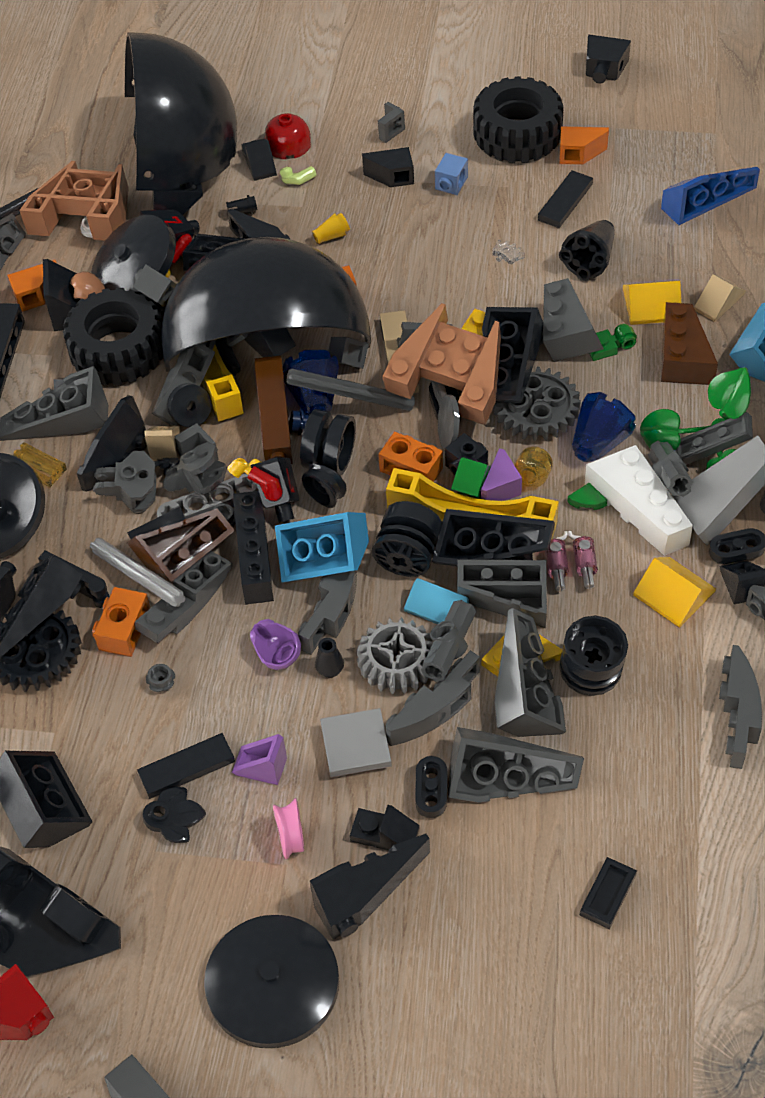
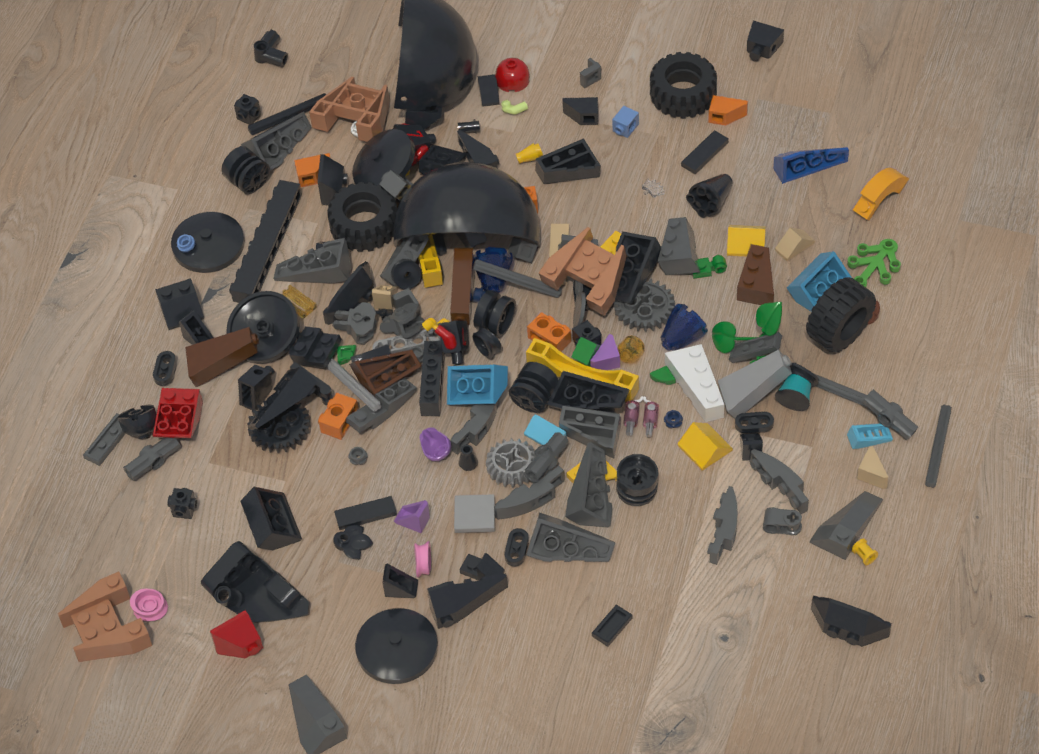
camera: 10 degrees right, 0 degrees up
(71, 526) = (314, 347): none -> black plate
(85, 284) = (348, 176): nougat hair -> none
(118, 528) = (345, 352): none -> green tile
(258, 874) = (398, 583): none -> black slope
(388, 233) = (568, 164): none -> black wedge
(619, 552) = (673, 415): none -> dark blue plate
(670, 468) = (720, 363): dark grey piece -> none

